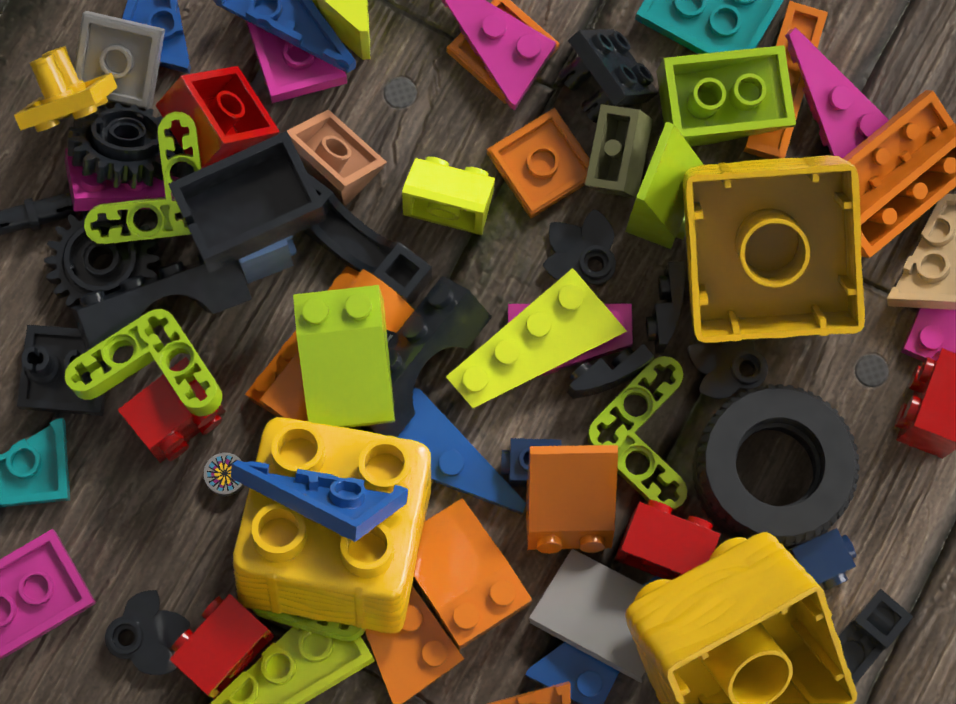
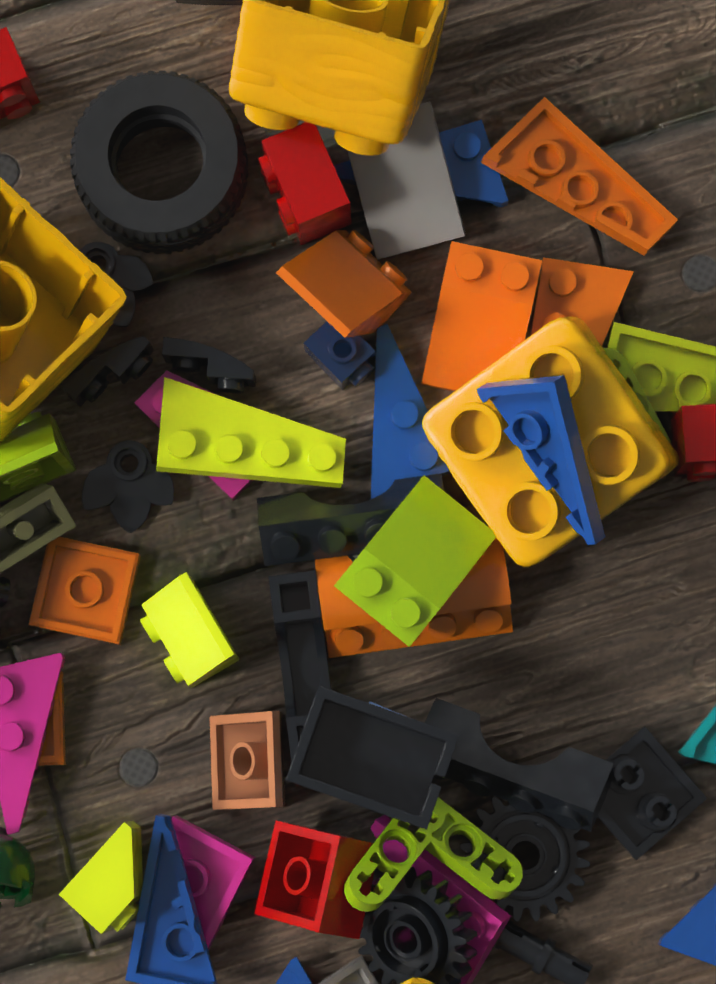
camera: 125 degrees left, 5 degrees up
(147, 348) = (569, 723): lime beam -> none
(163, 419) = (588, 664): red brick -> none
(218, 474) = (590, 582): tile -> none
(630, 443) = (249, 298): lime beam -> none
(826, 558) = (197, 57): dark blue brick -> none

